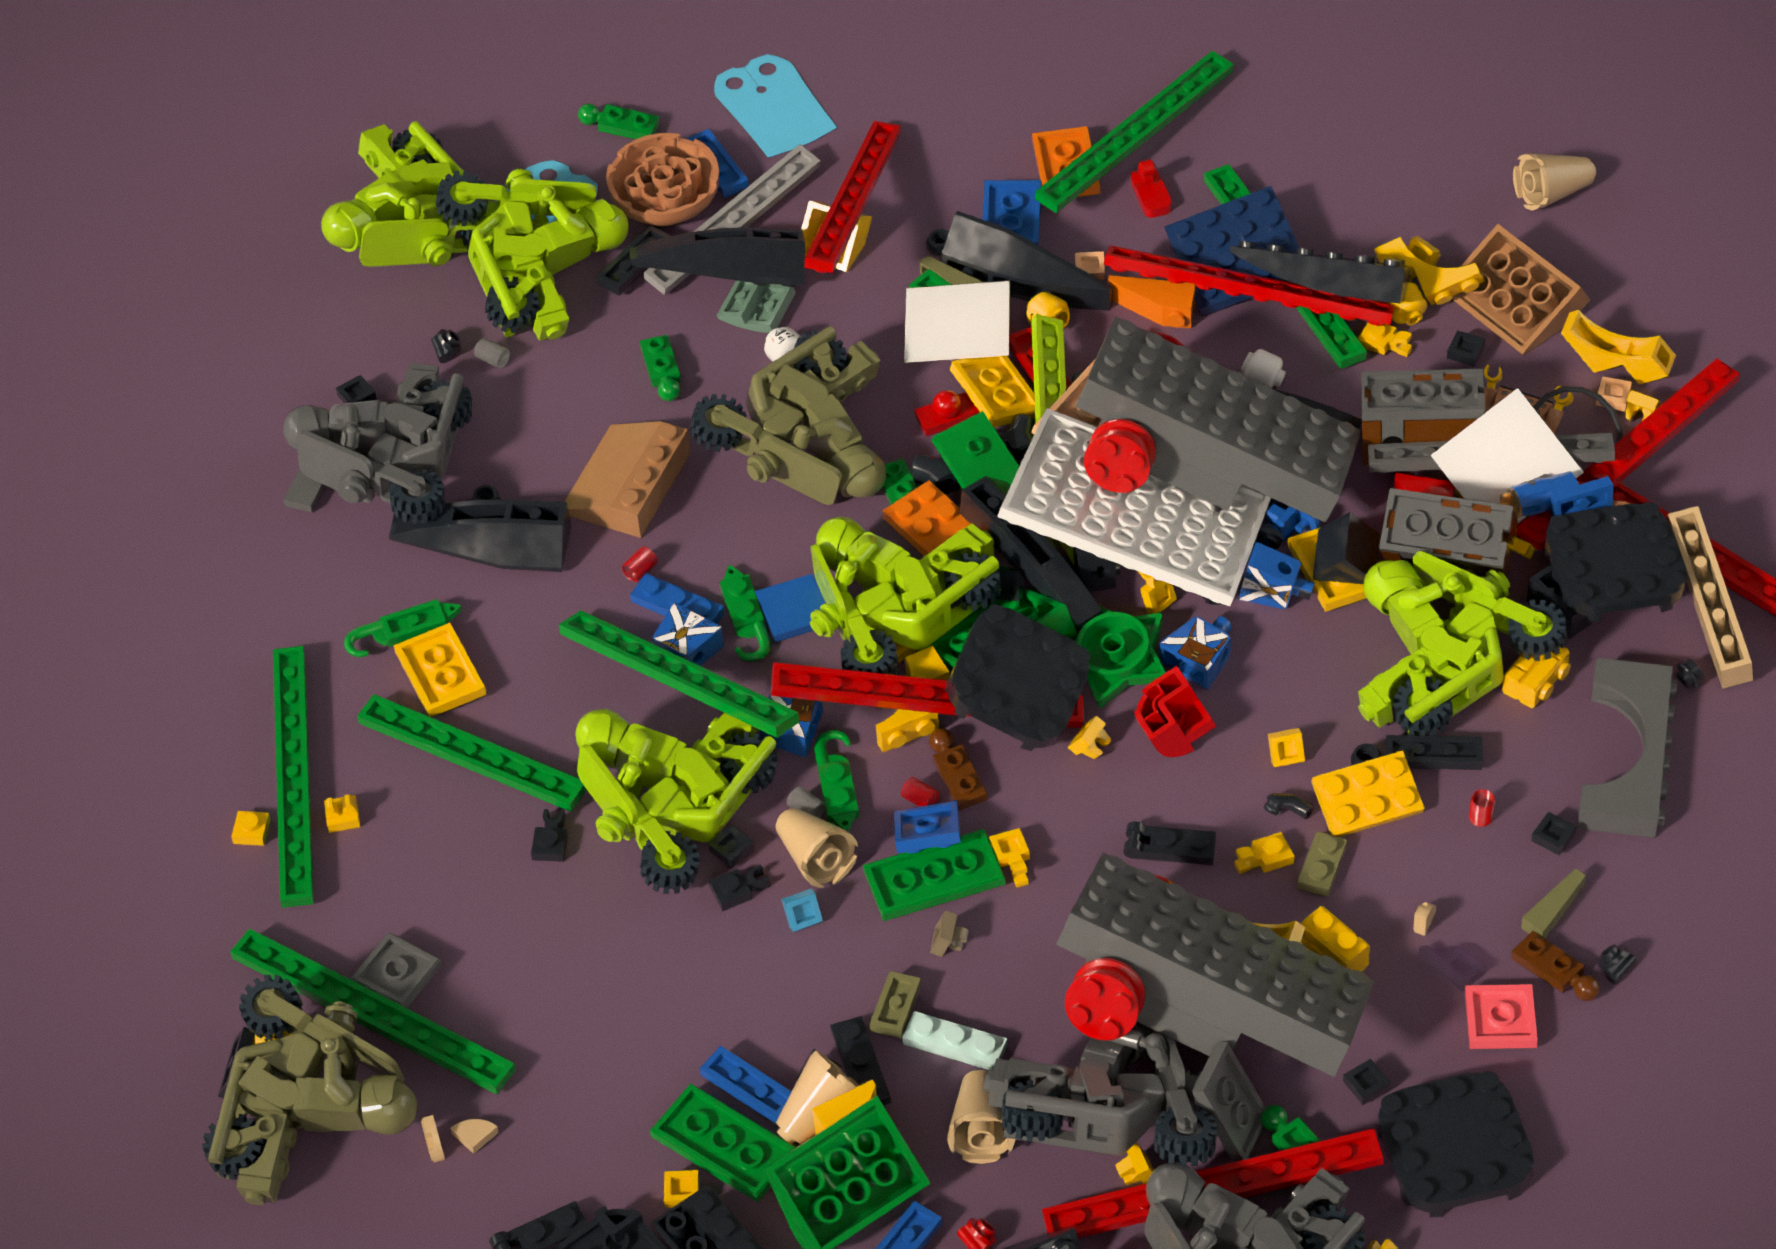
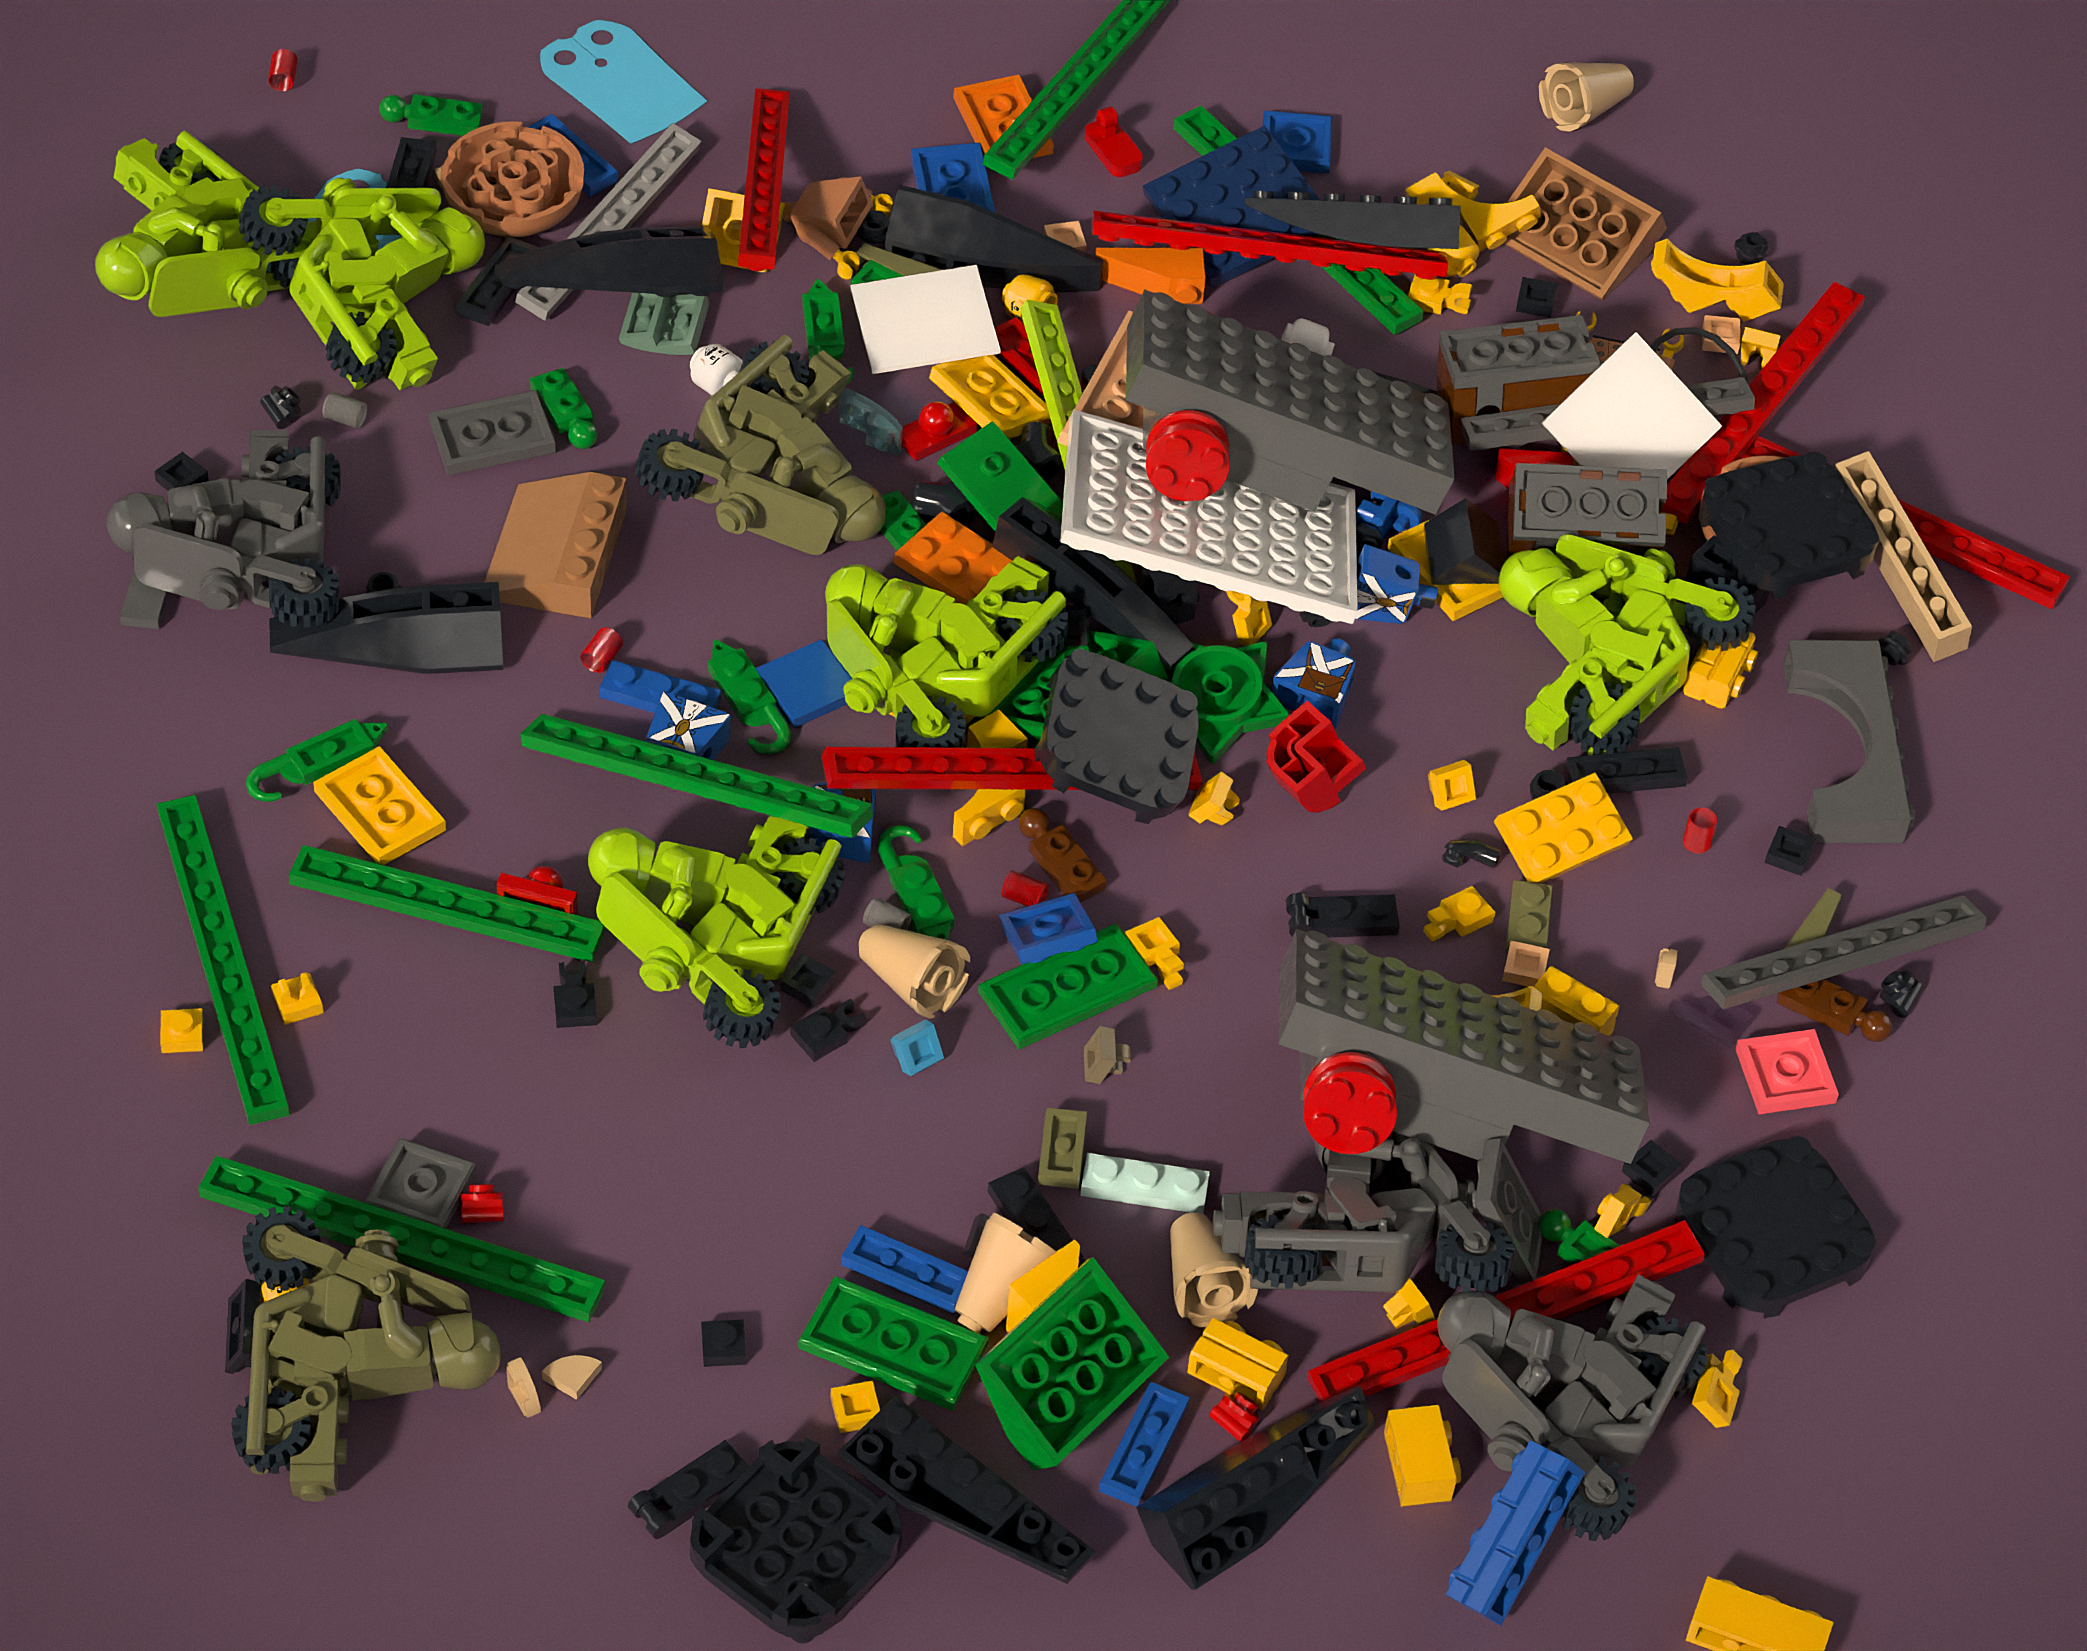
camera: 20 degrees left, 0 degrees up
(439, 992) = (482, 1204): none -> red plate
(520, 75) = (274, 70): none -> red piece
(544, 749) = (540, 887): none -> red tile
(591, 162) = (412, 163): none -> black plate
(595, 1124) = (723, 1343): none -> black plate
(599, 381) = (491, 432): none -> dark grey plate
(879, 320) = (823, 323): none -> green plate
(892, 395) = (881, 427): none -> clear light blue slope
(905, 230) = (831, 215): none -> nougat torso
(988, 1194) = (1238, 1362): none -> yellow brick
(1305, 199) = (1303, 138): none -> blue tile
(1306, 900) = (1525, 963): none -> light nougat plate
(1327, 1111) = (1619, 1208): none -> yellow plate
(1558, 495) = (1704, 454): blue plate -> none
(1572, 923) = (1843, 952): none -> dark grey plate
(1660, 323) = (1751, 248): none -> black plate

